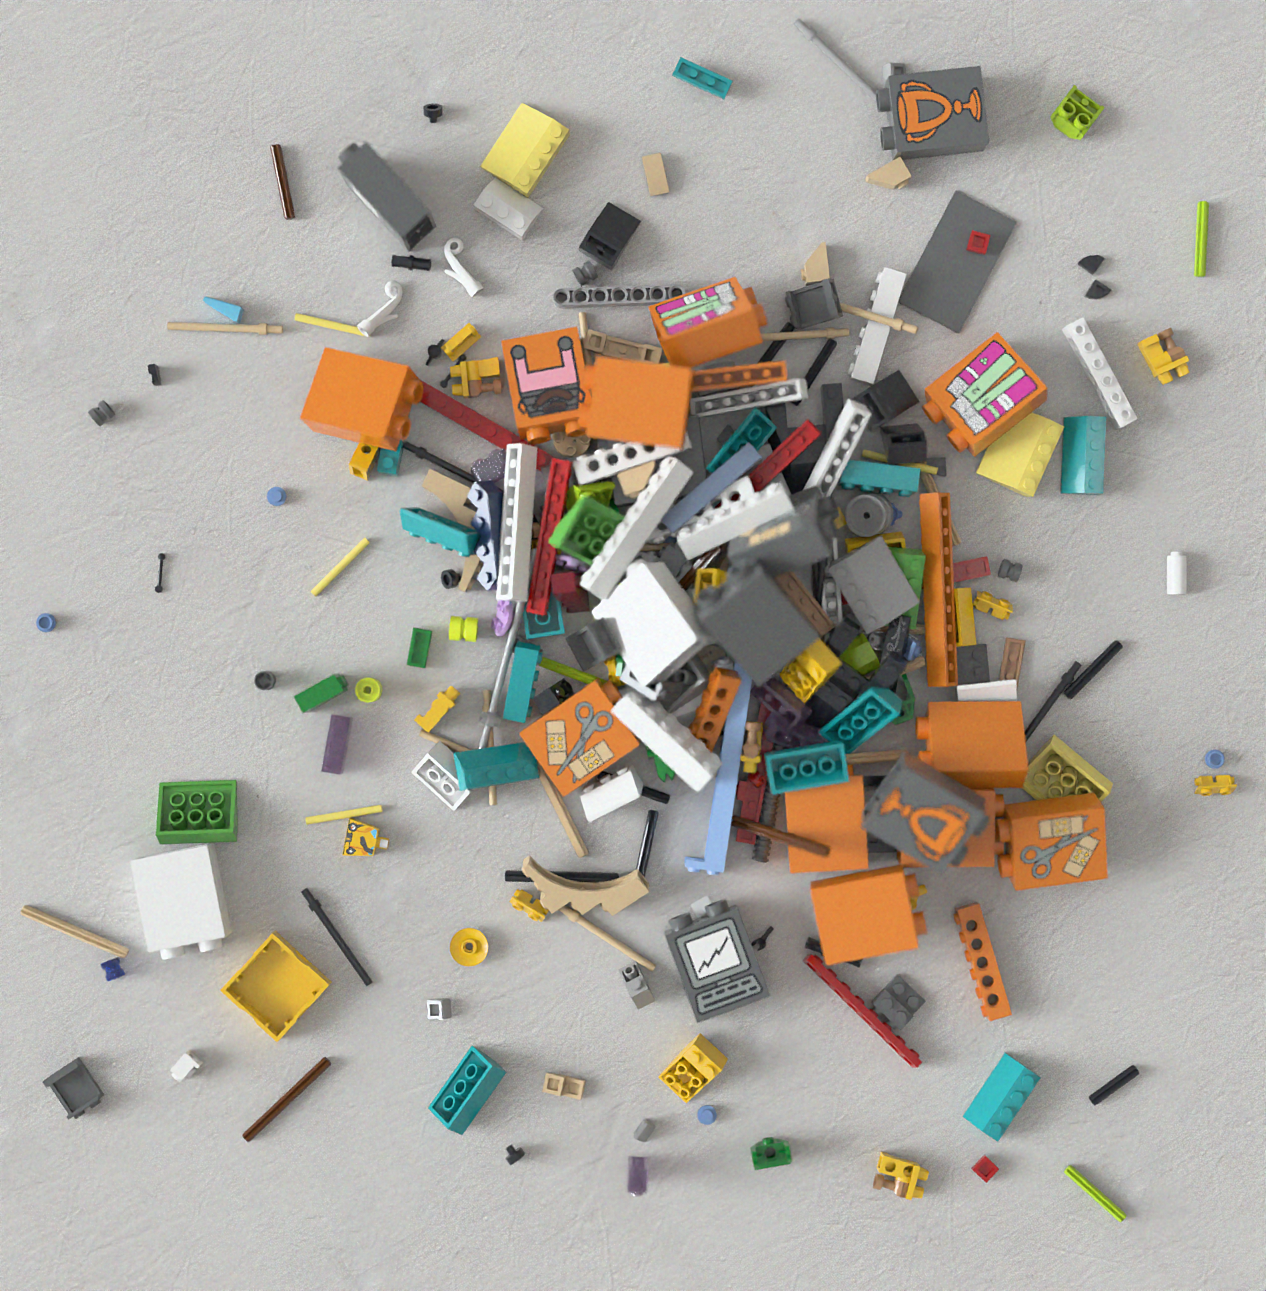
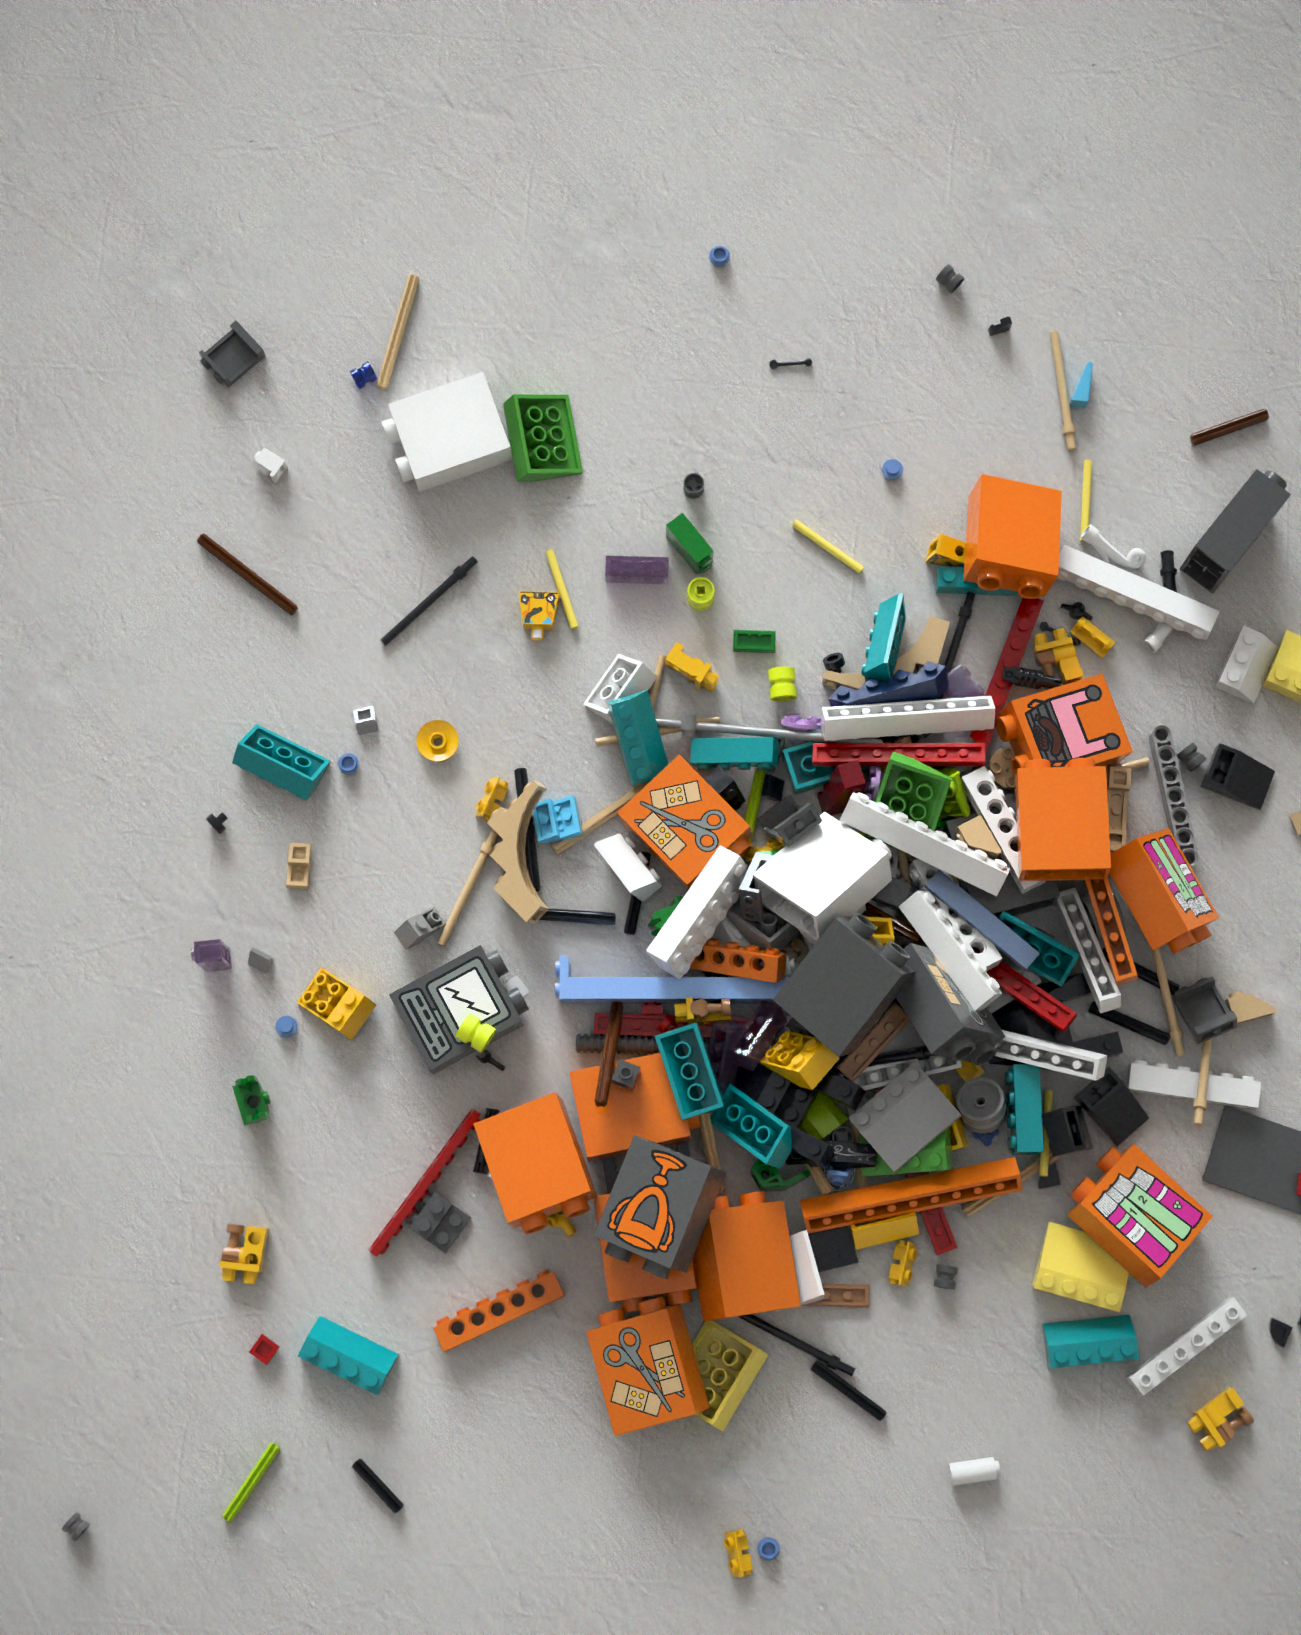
camera: 80 degrees right, 10 degrees down
(276, 986) = (368, 544): yellow tile -> none
(428, 295) = (1136, 593): none -> white brick
(477, 1029) = (348, 764): none -> medium blue plate
(493, 405) = (1030, 678): none -> black hinge
(557, 652) = (773, 788): none -> black plate
(557, 849) = (557, 820): none -> medium azure slope
(745, 951) = (474, 1032): none -> neon yellow wheel
(802, 824) = (626, 1075): none -> dark grey brick

